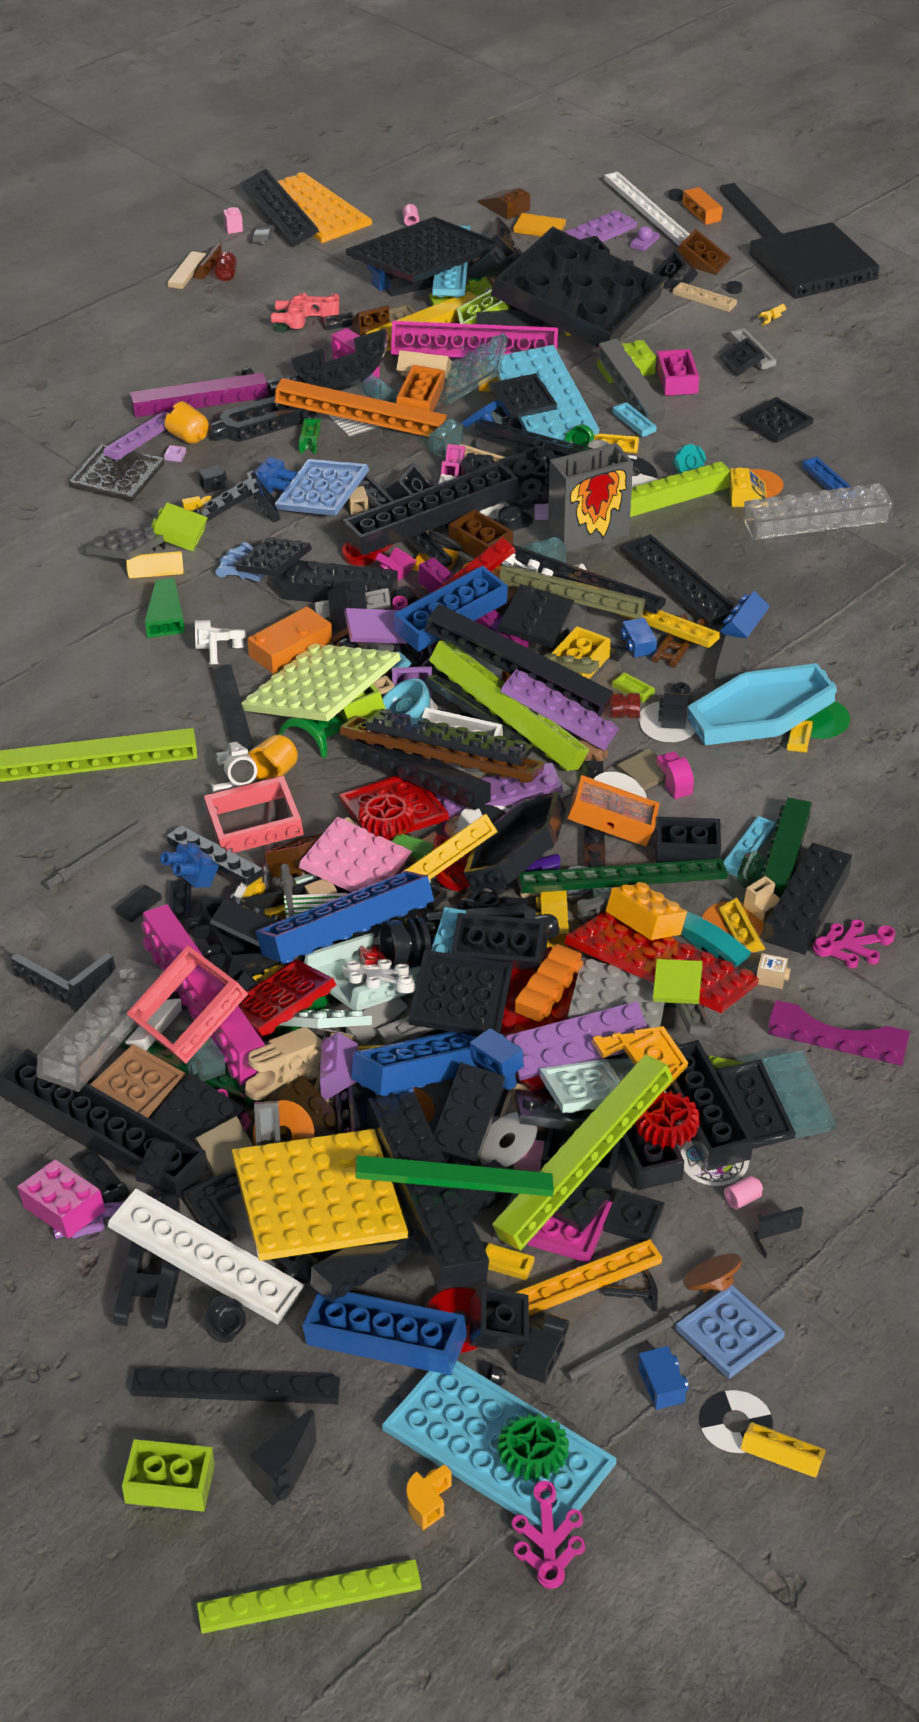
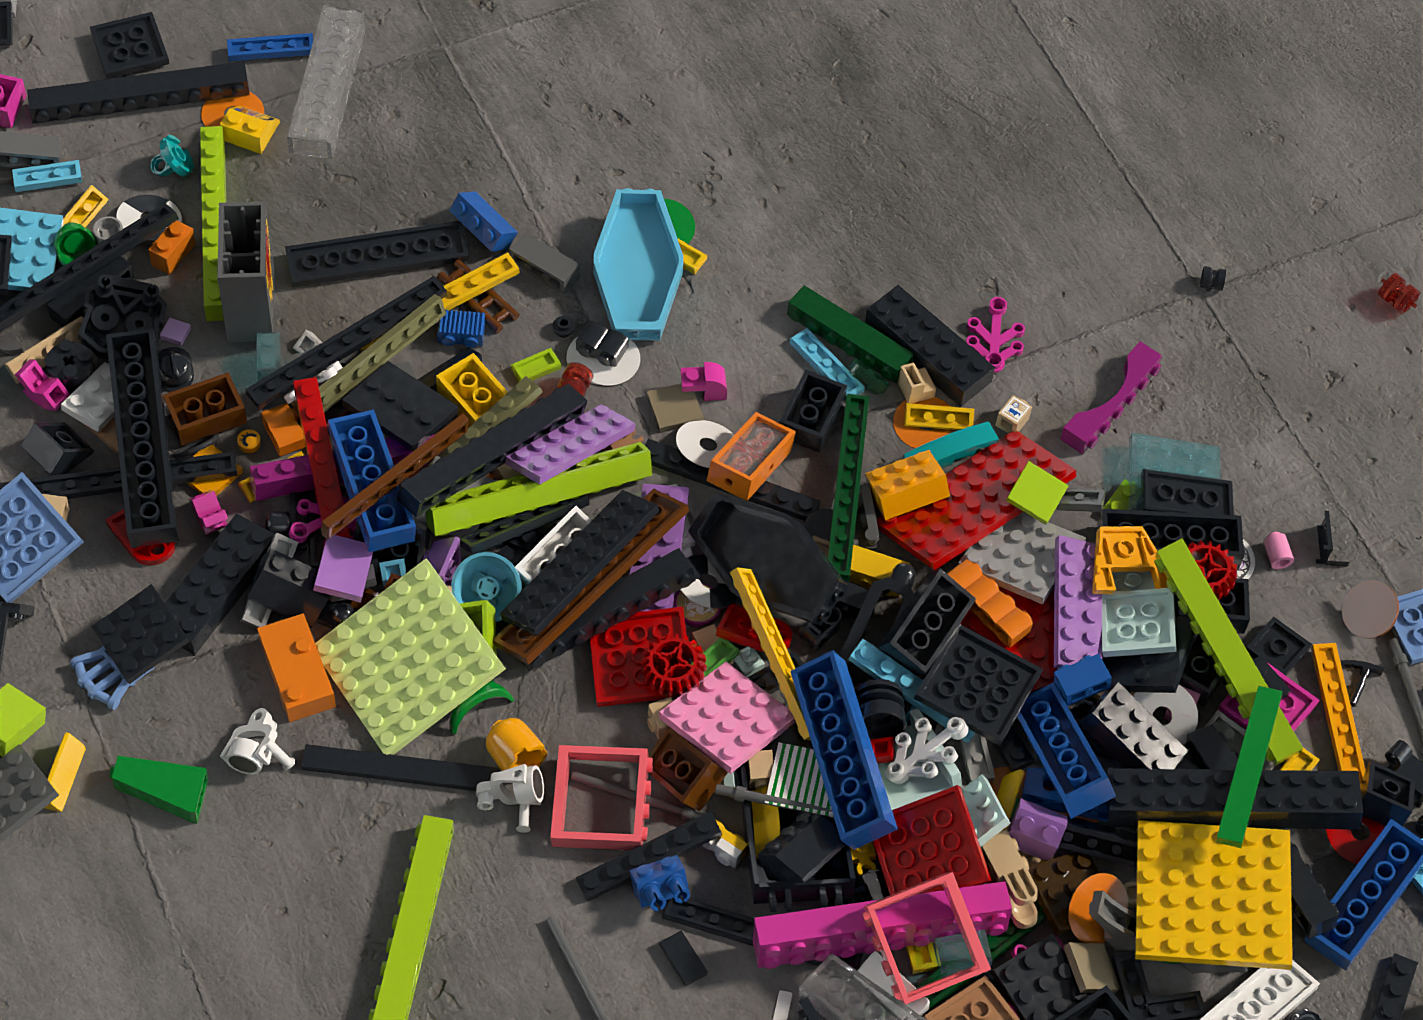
camera: 75 degrees left, 15 degrees up
(430, 599) = (394, 476): none -> reddish brown tile
(738, 434) = (138, 92): none -> black brick

